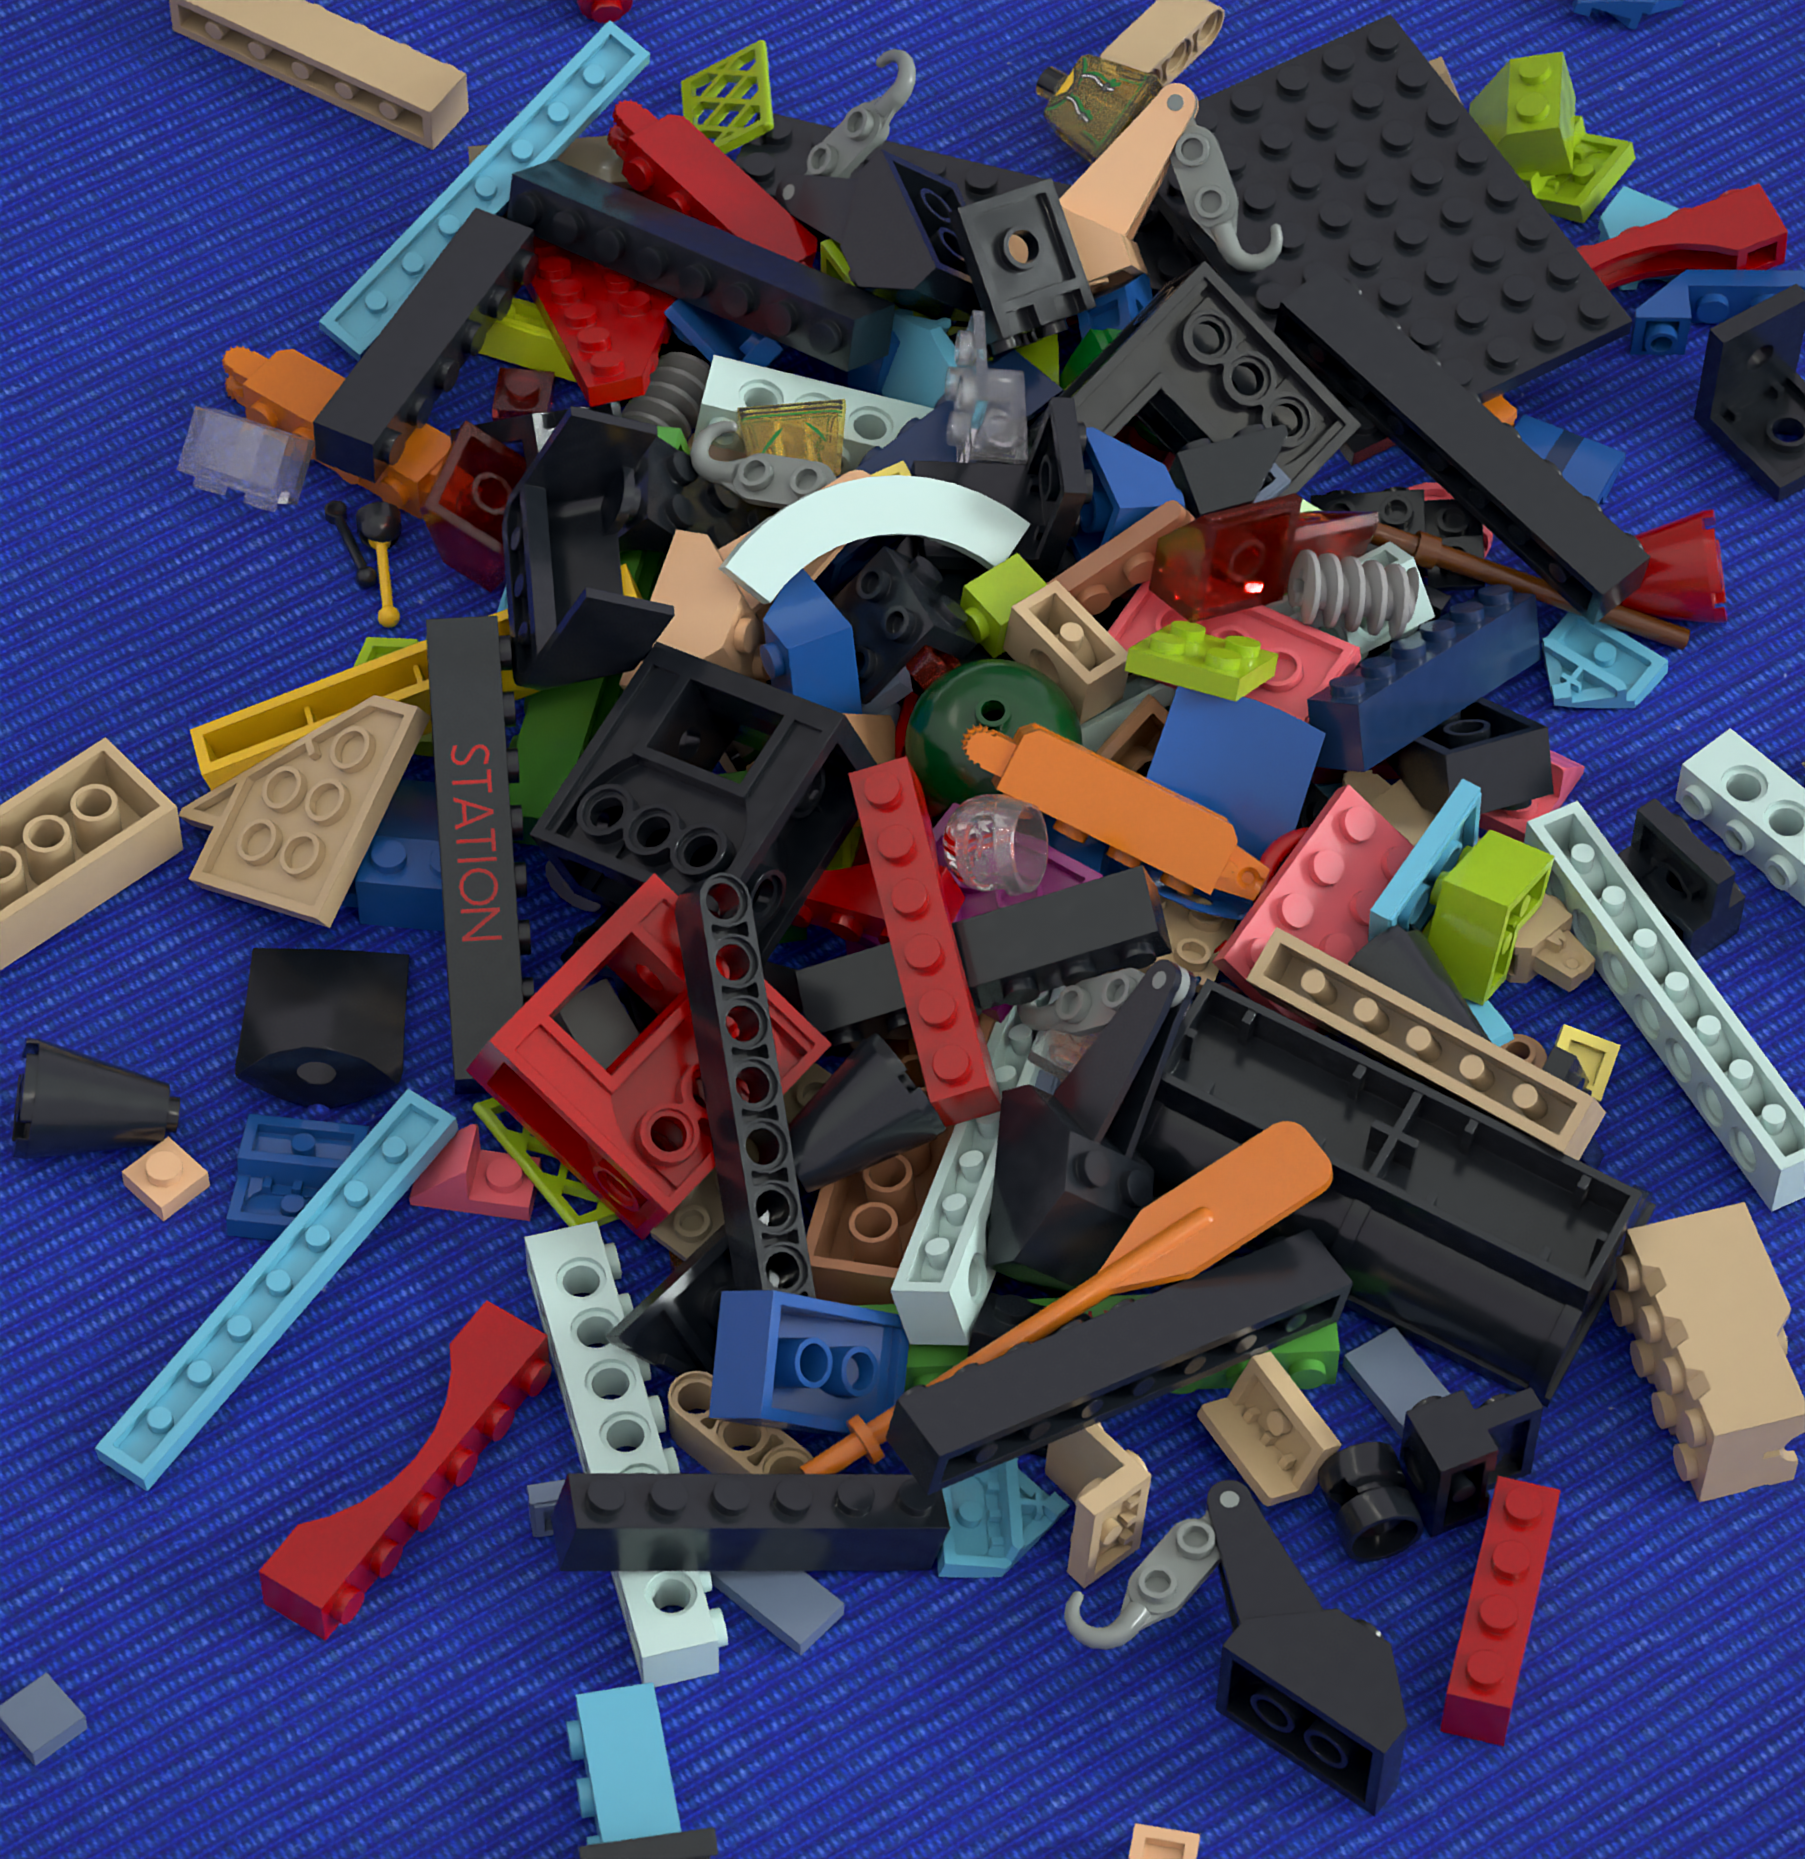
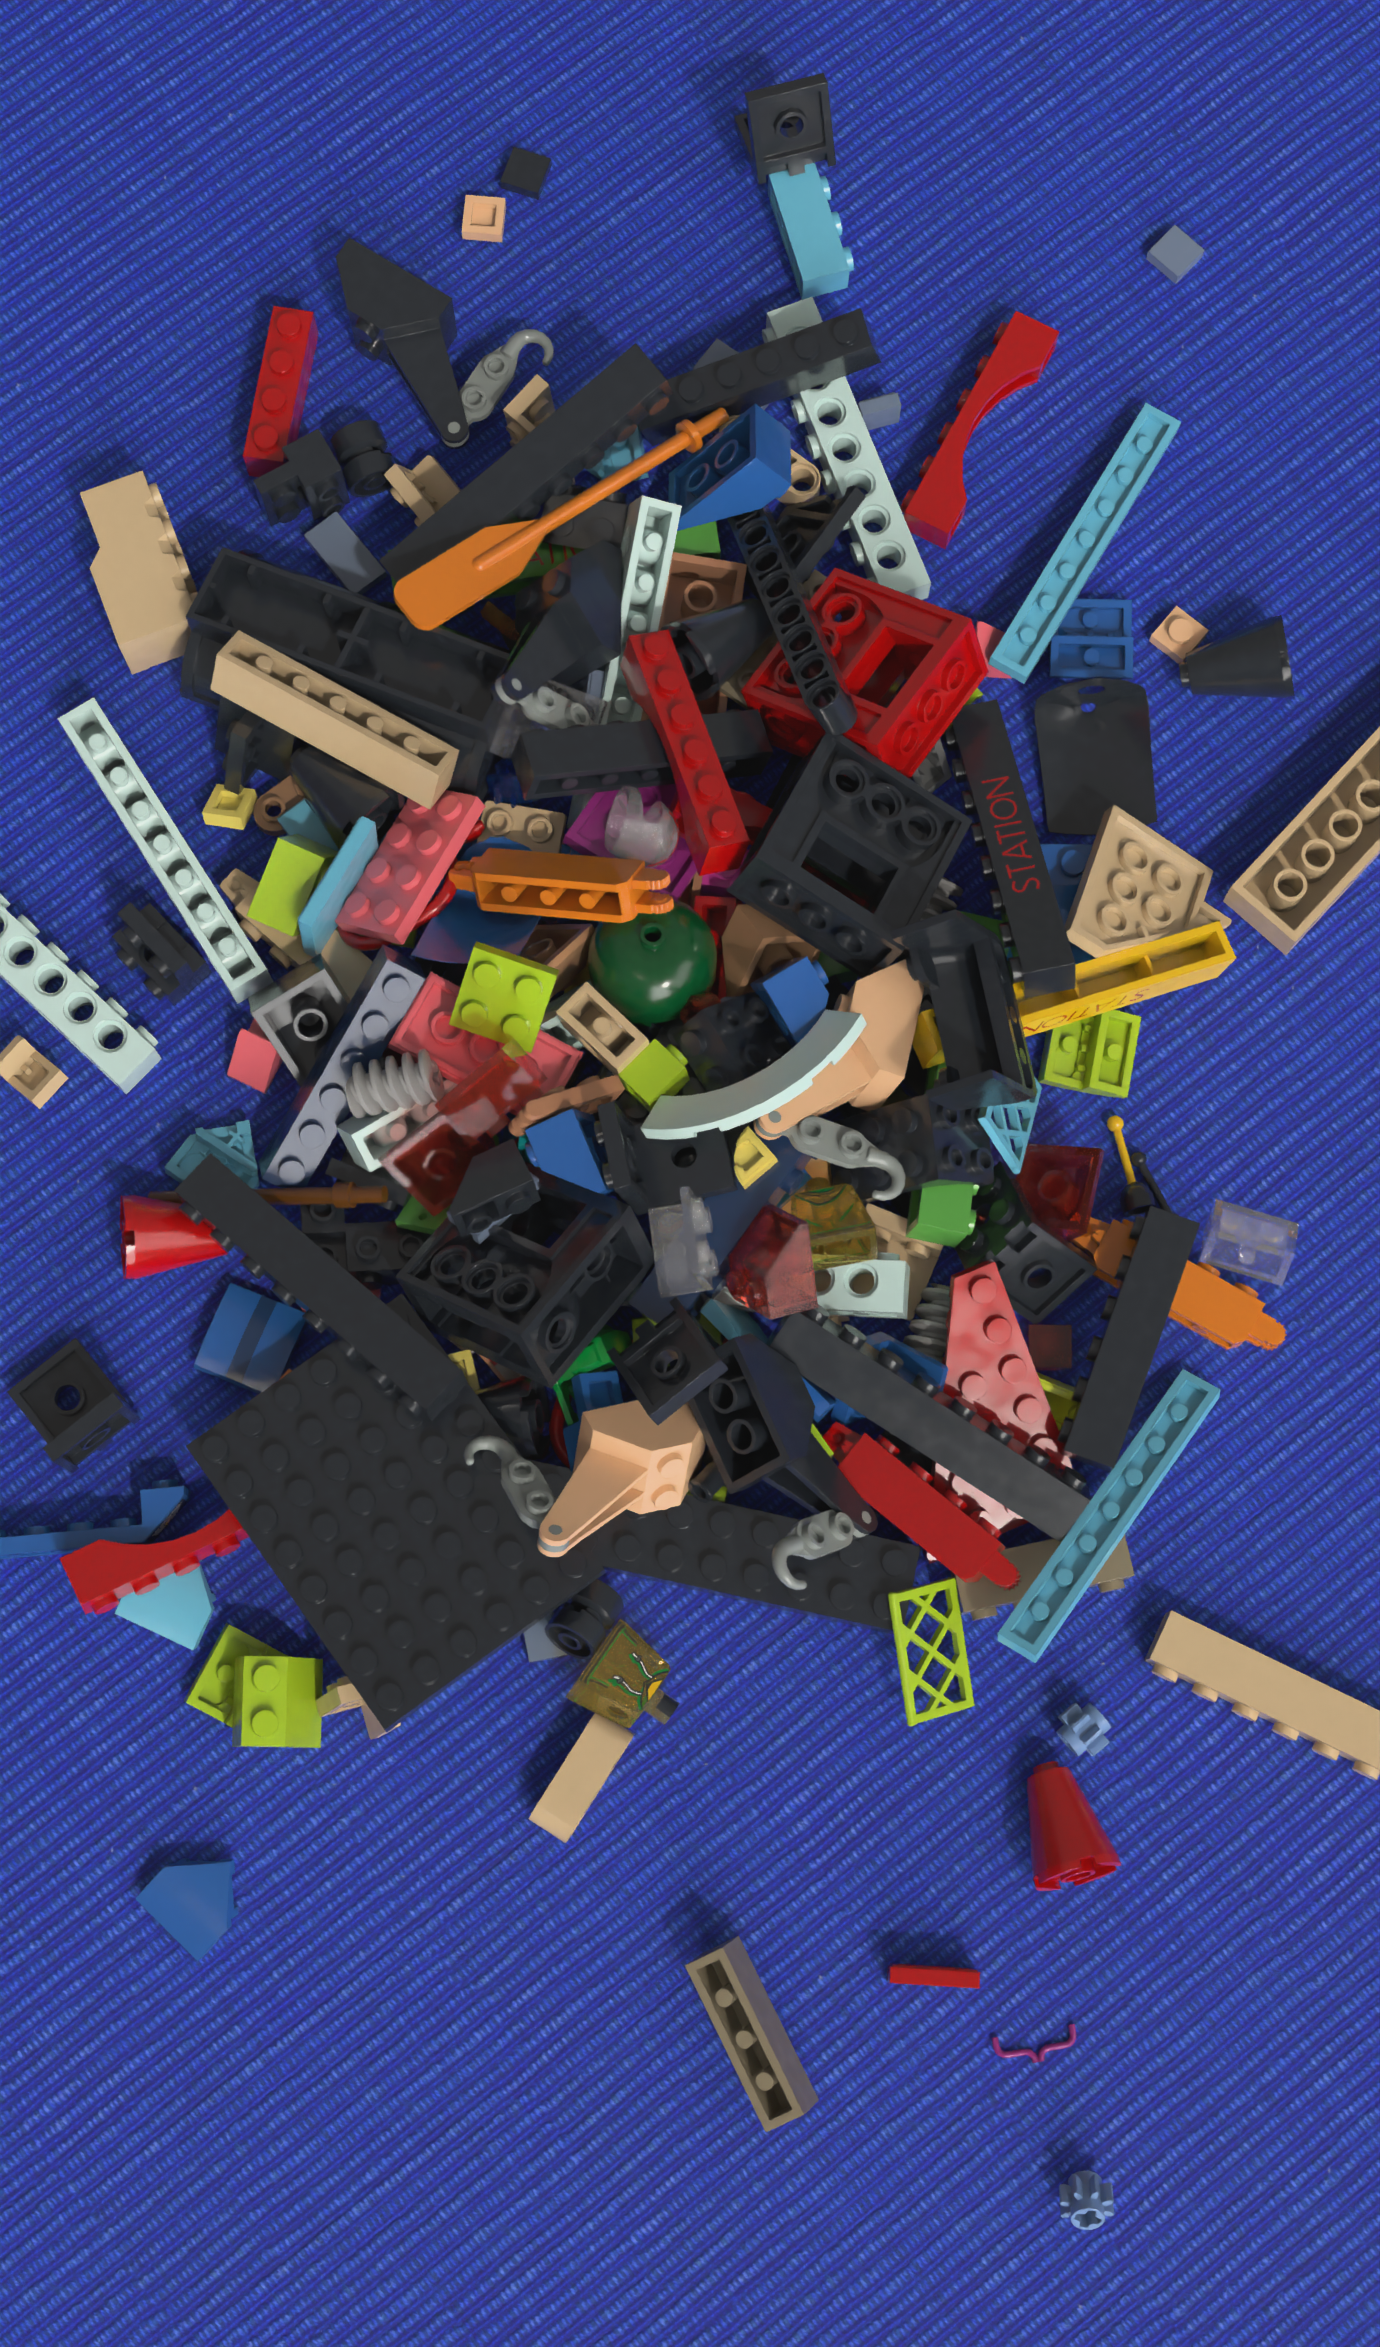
camera: 175 degrees right, 25 degrees up
(555, 34) = (1083, 1729): none -> medium blue gear
(878, 368) = (774, 1265): none -> clear red slope

